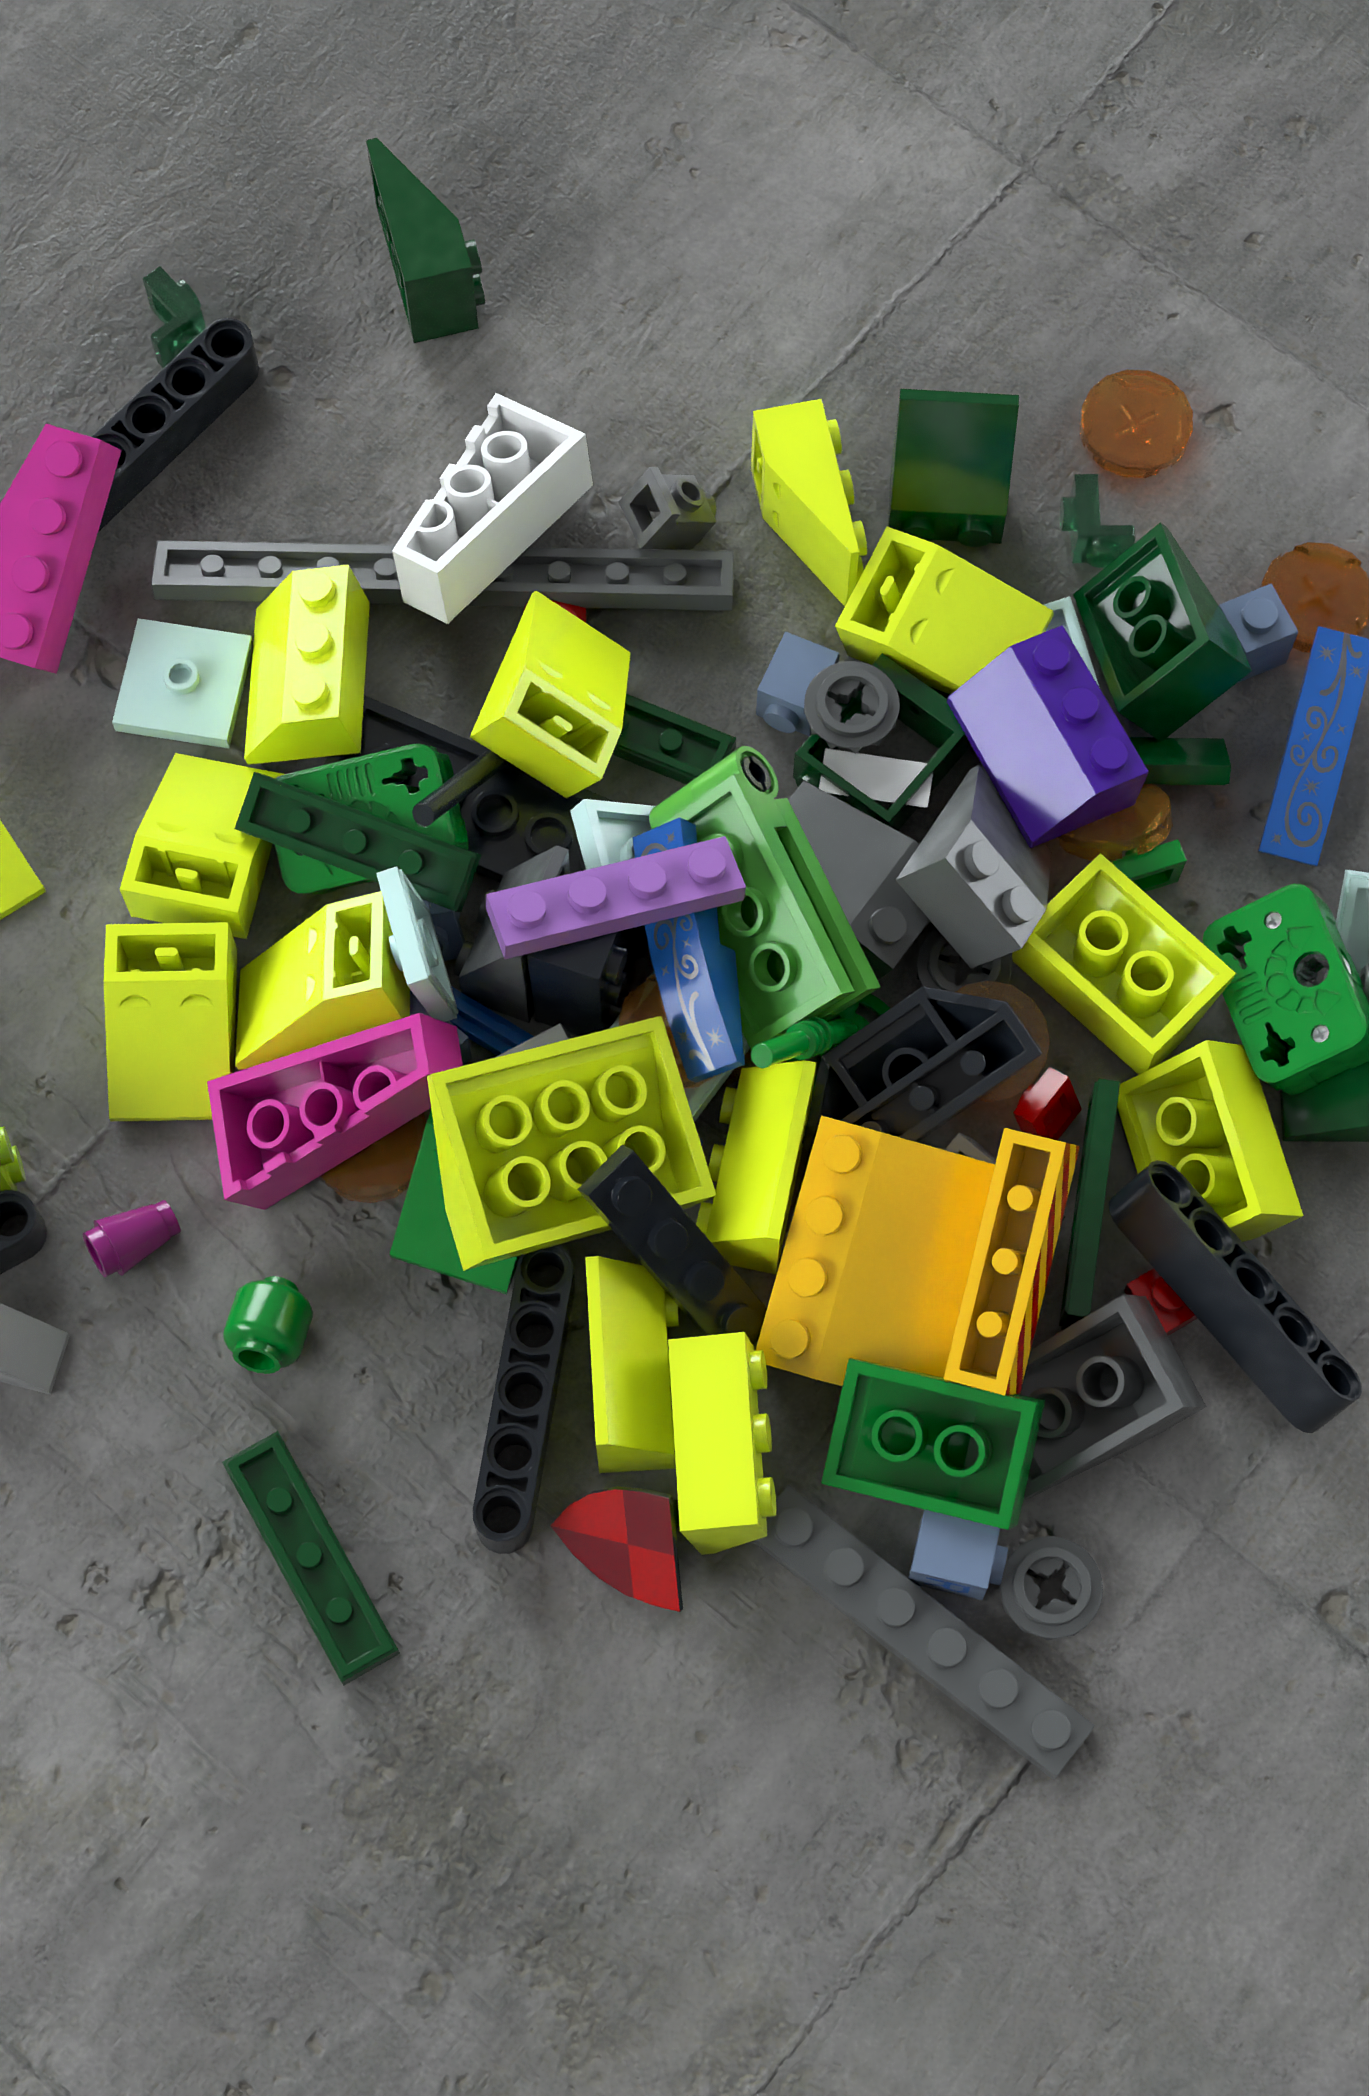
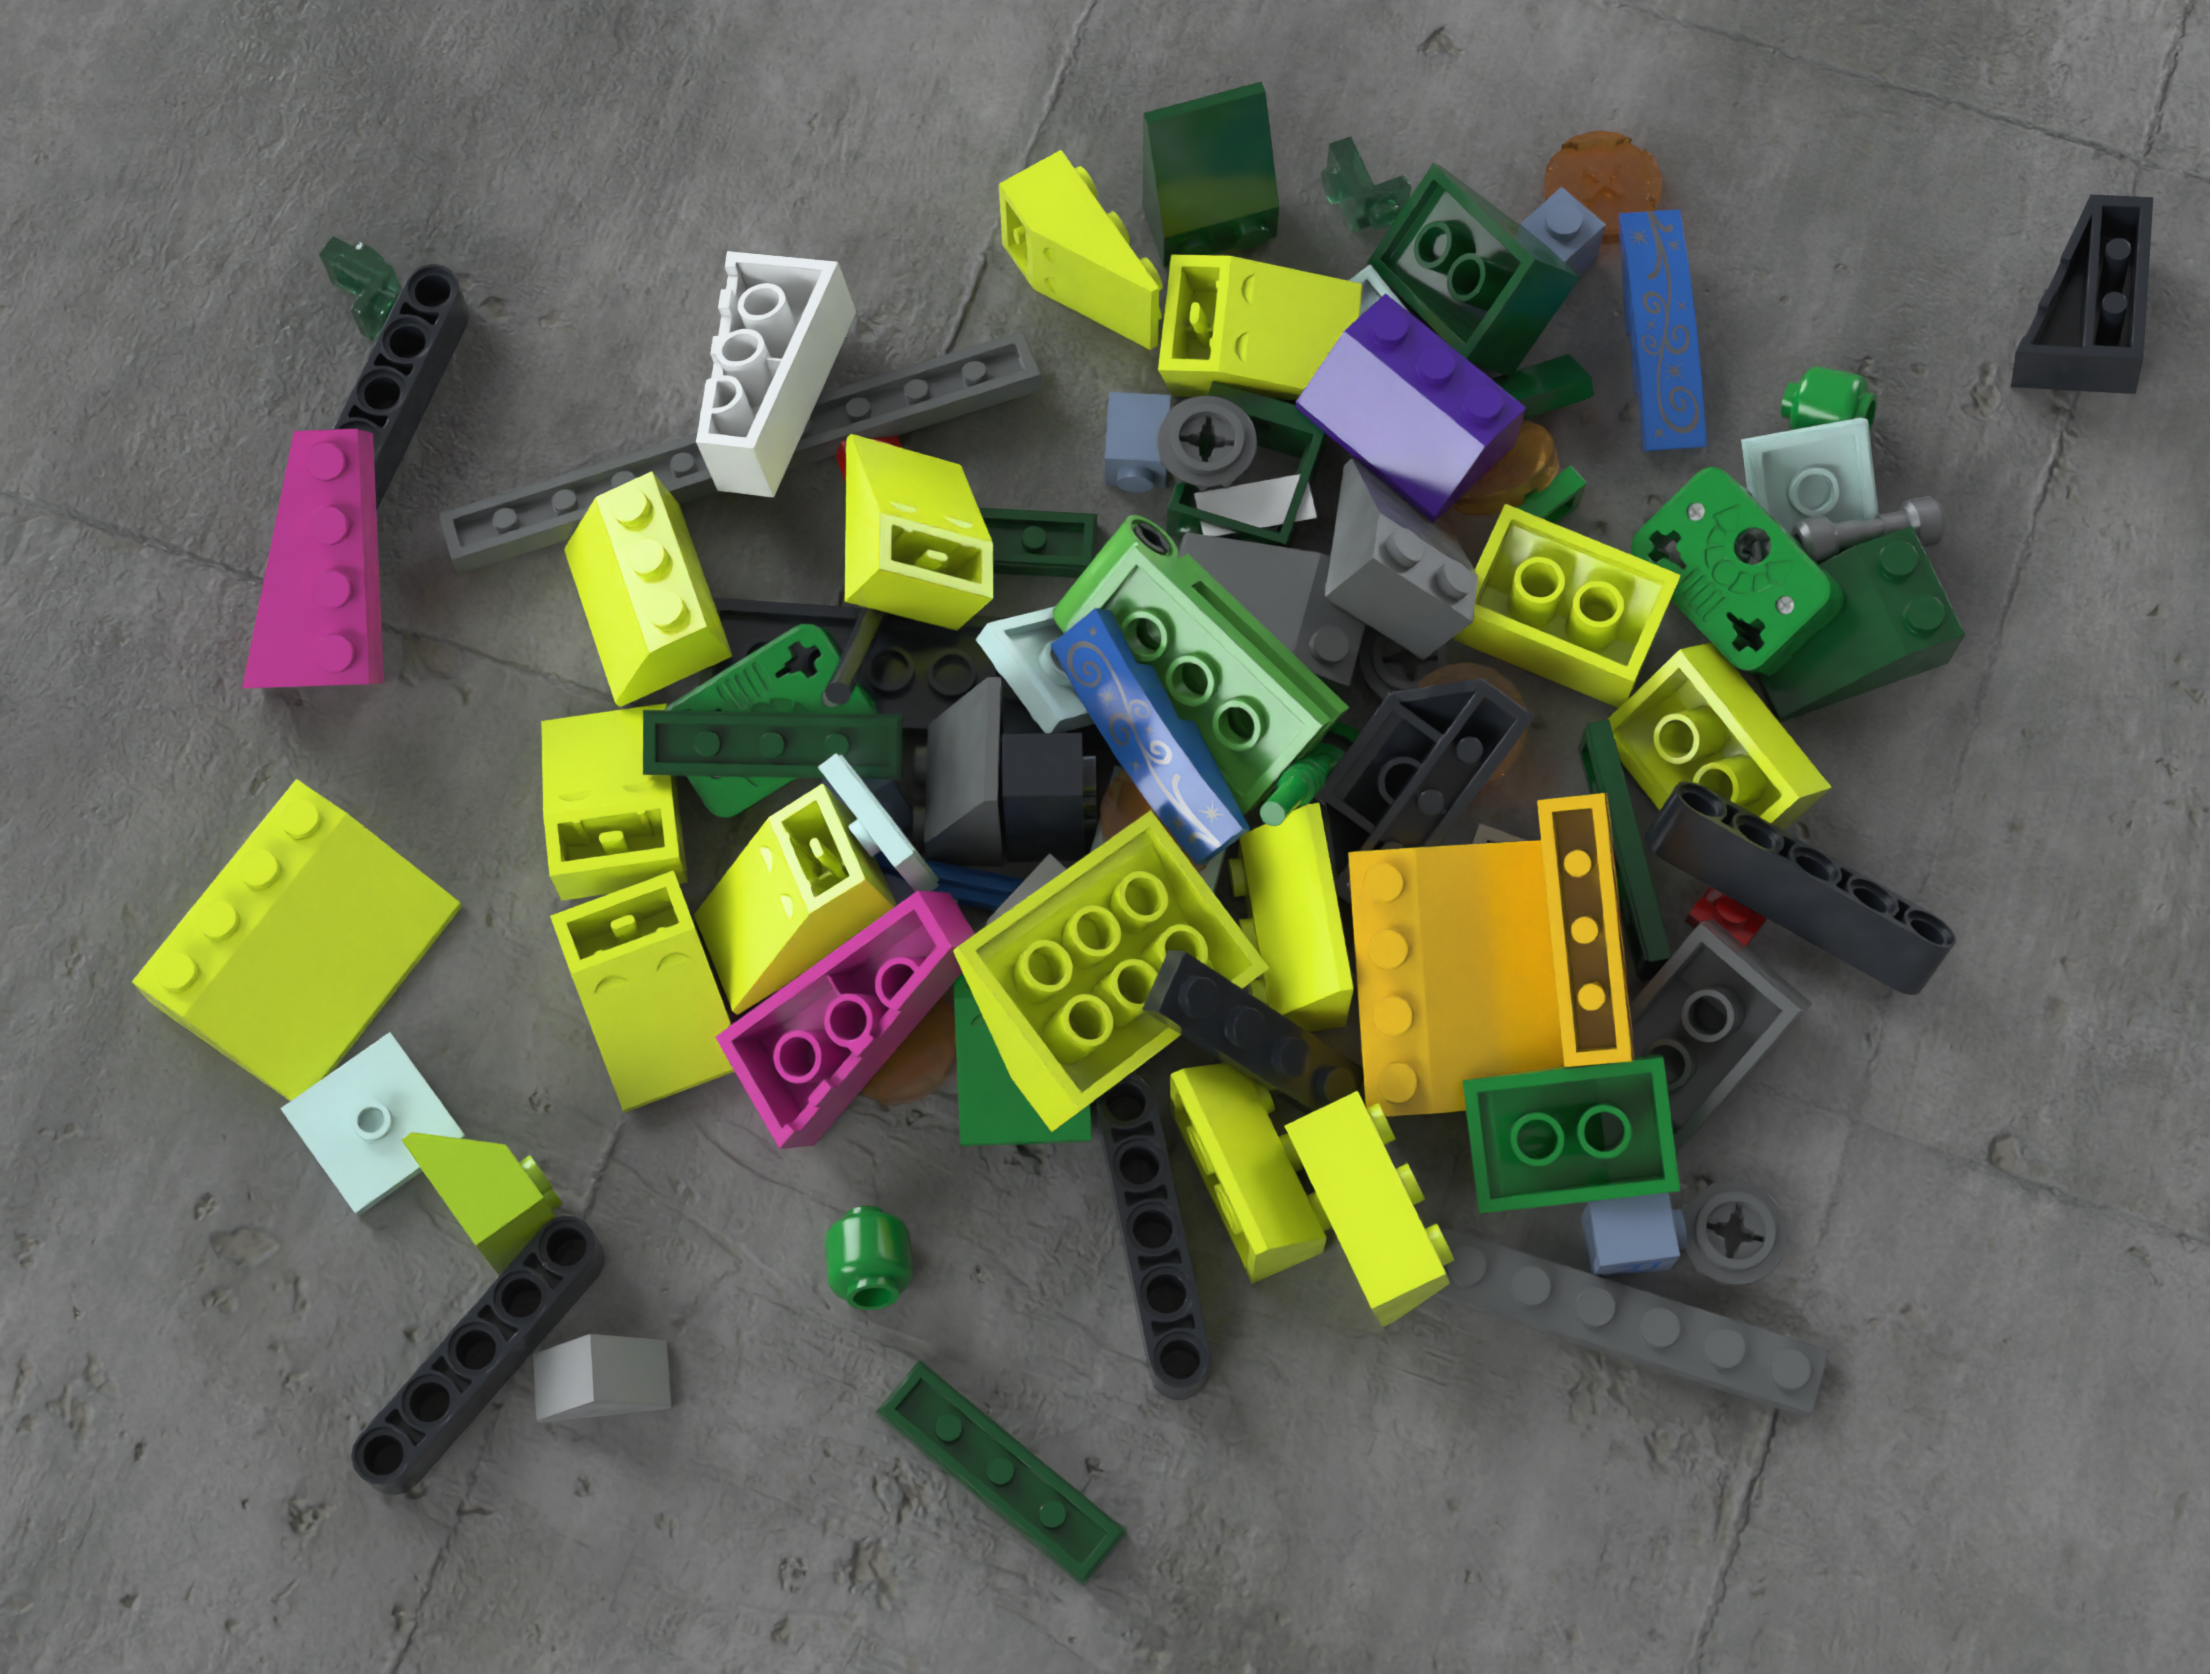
camera: 20 degrees left, 0 degrees up
(129, 1237) = (691, 1222): magenta cone -> none
(183, 683) = (519, 648): light aqua plate -> none
(427, 251) = (594, 130): dark green slope -> none
(615, 897) = (1067, 708): medium lavender plate -> none
(627, 1542) = (1312, 1340): shield -> none
(684, 509) = (955, 300): flat silver brick -> none
(1048, 1106) = (1545, 768): red plate -> none
(1136, 423) = (1361, 75): clear orange tile -> none

